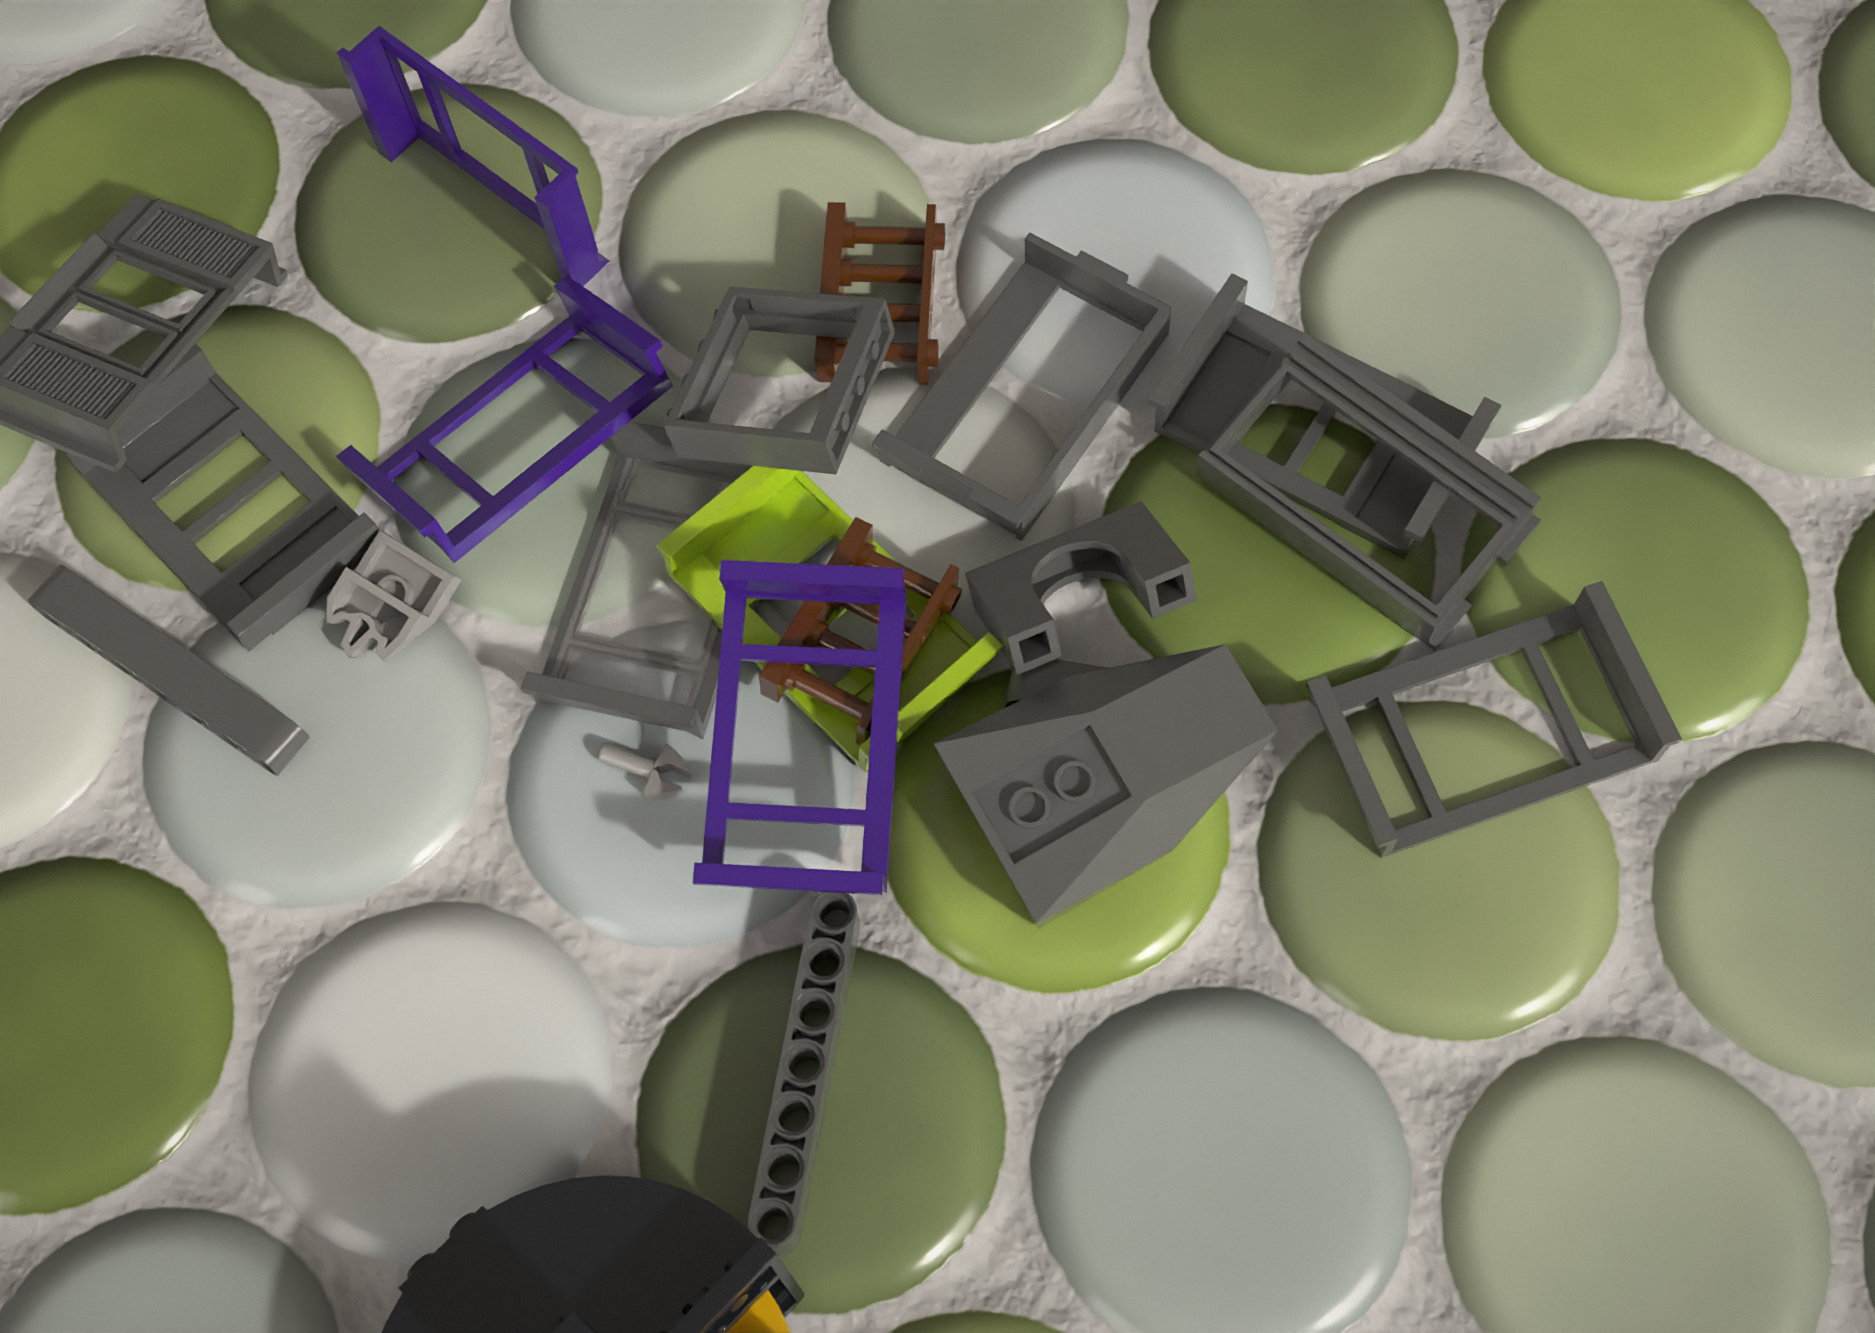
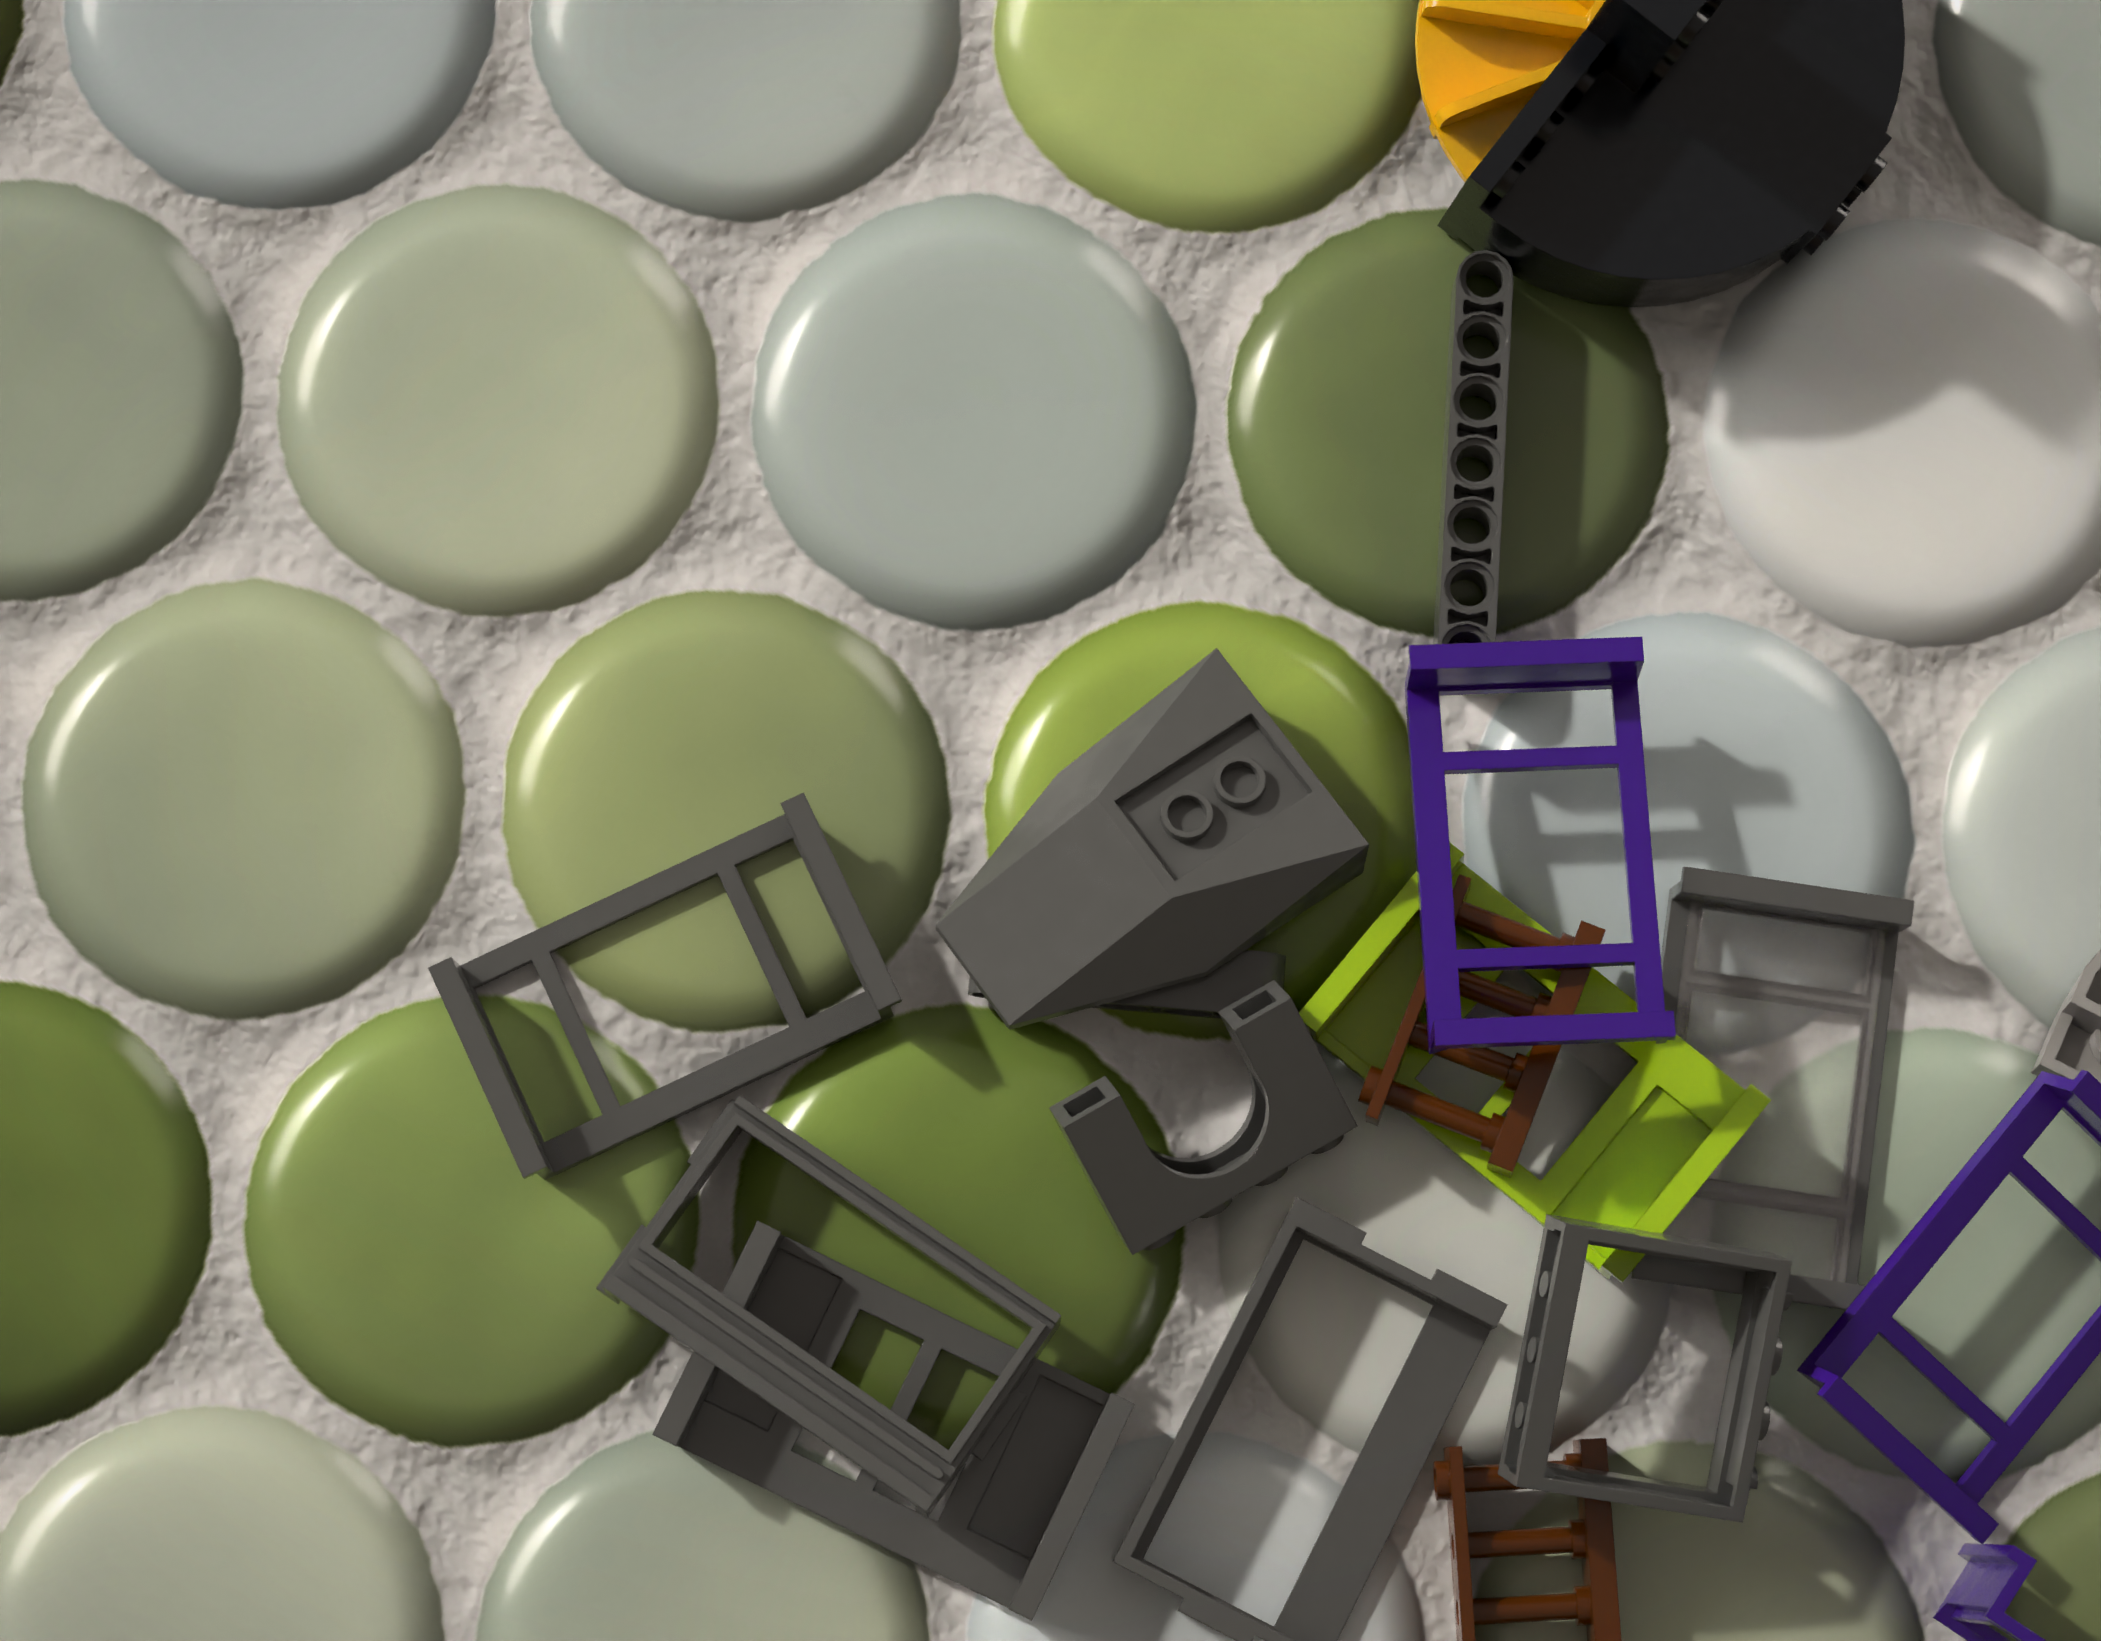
camera: 170 degrees right, 15 degrees up
(648, 768) = (1733, 838): light grey bar -> none

